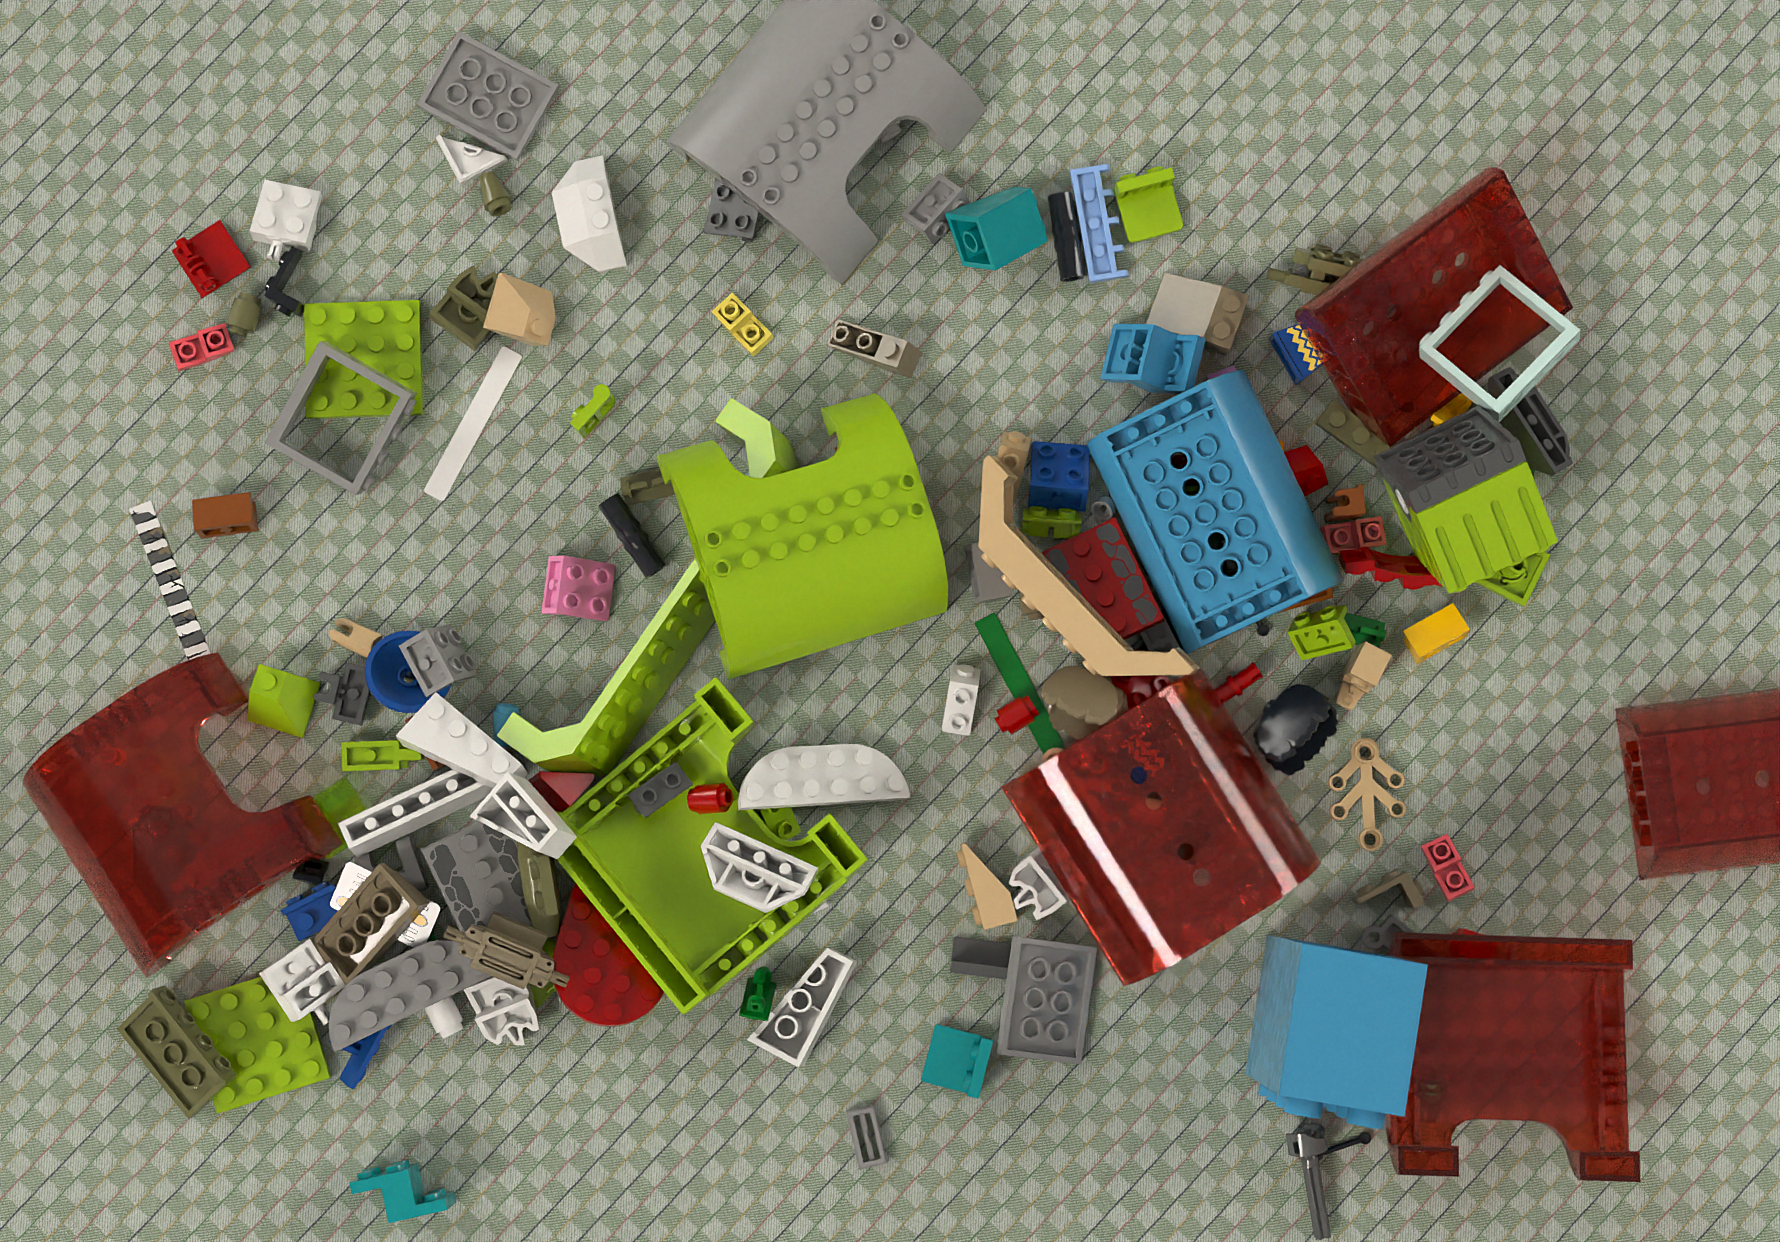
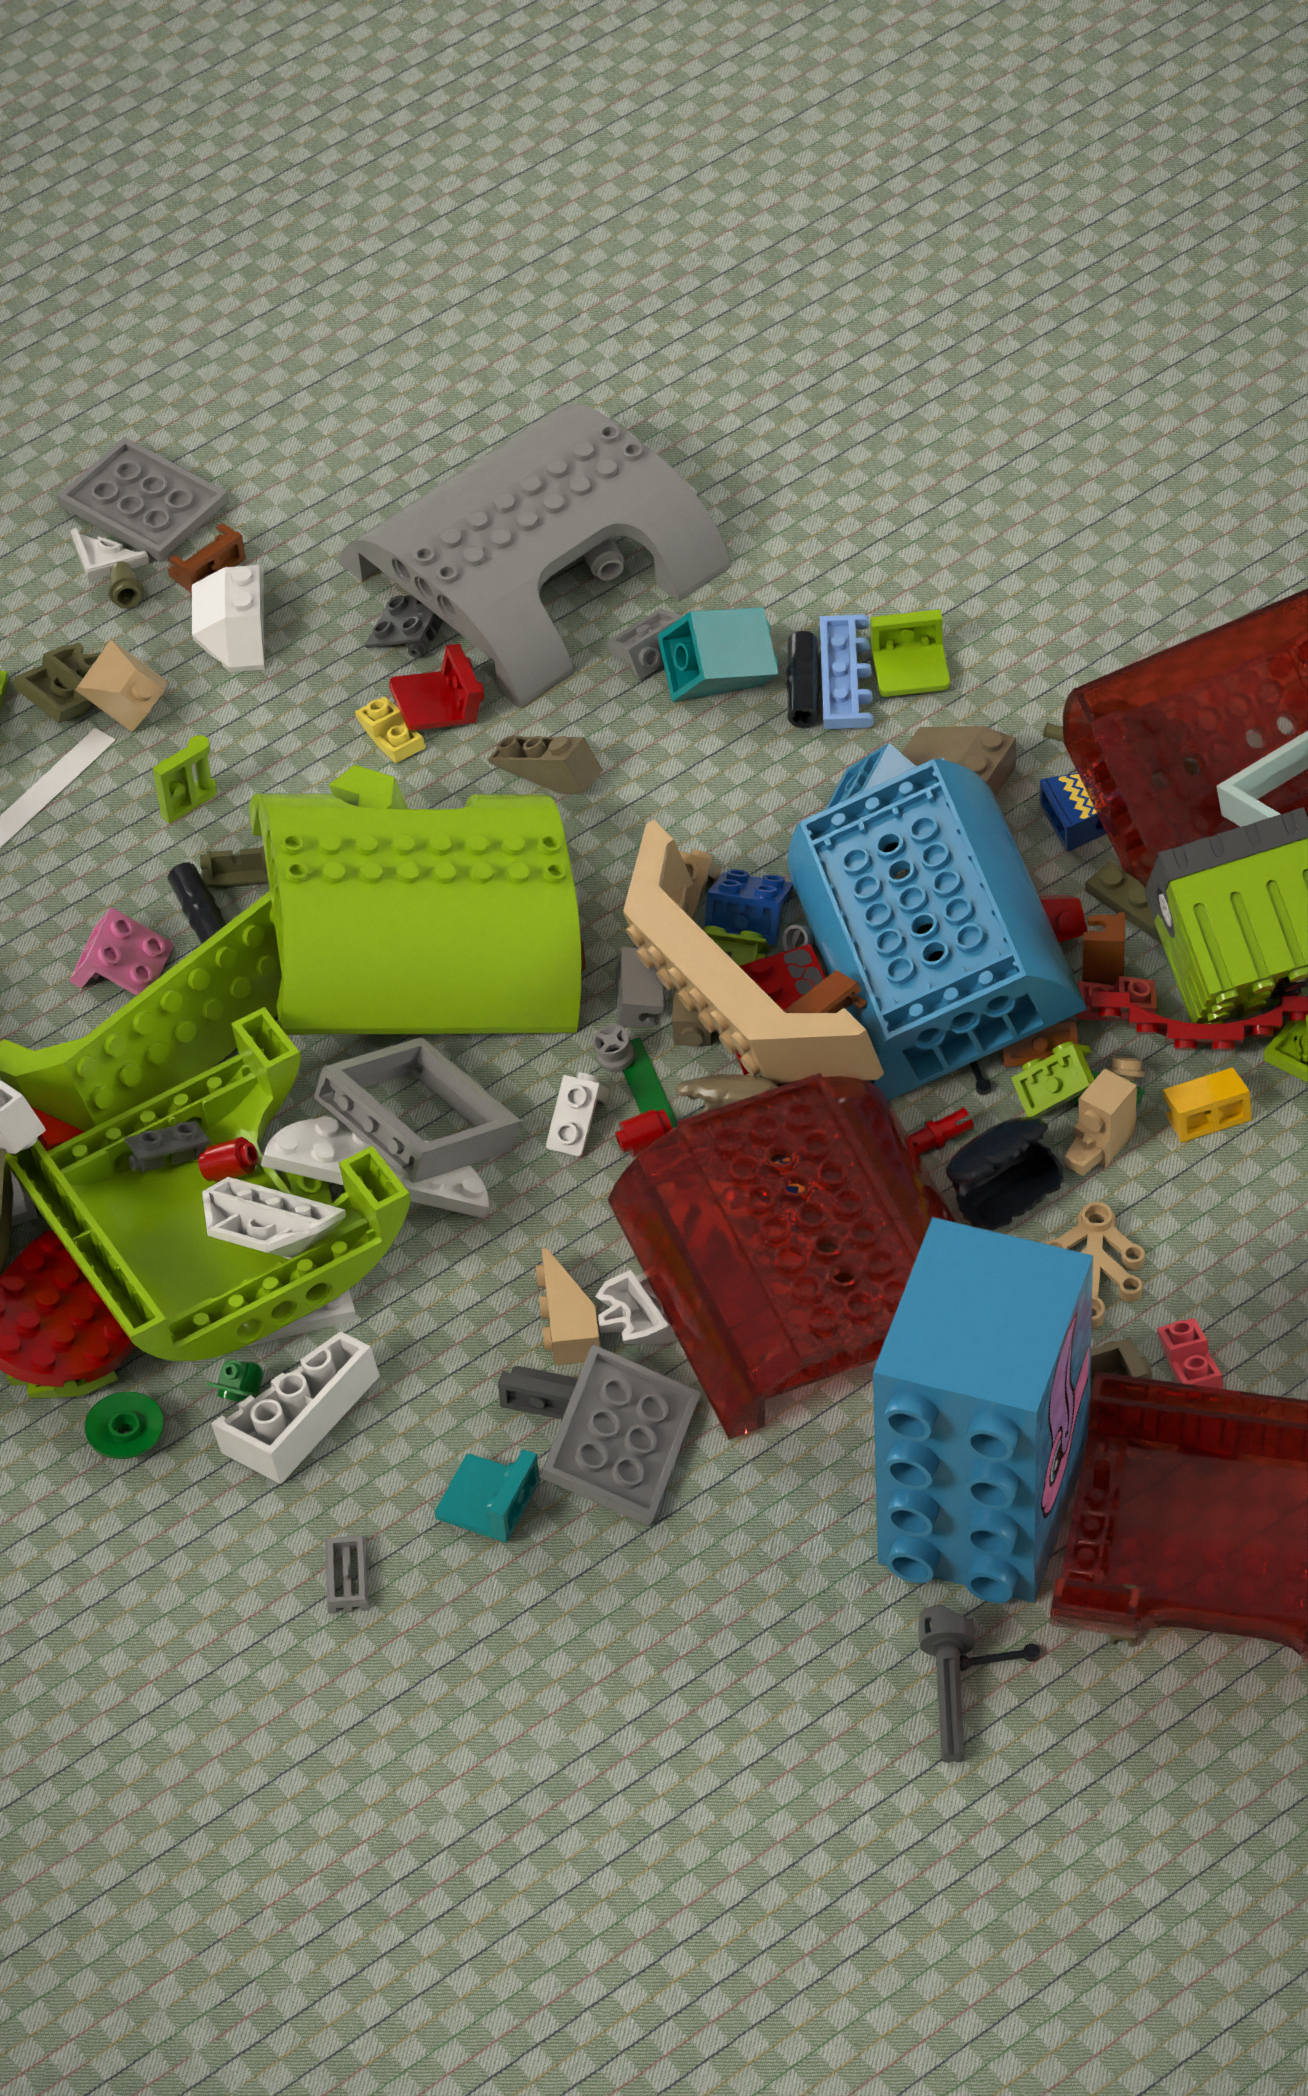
camera: 15 degrees right, 35 degrees down
(557, 157) = (223, 552): none -> dark orange hinge
(672, 1049) = (119, 1414): none -> green dish
(776, 290) = (439, 697): none -> red bracket
(819, 761) = (343, 1095): none -> light grey window
(974, 633) = (617, 1041): none -> light grey wheel
(1145, 617) = (829, 996): none -> dark orange hinge
(1370, 607) = (1127, 1068): none -> tan plate

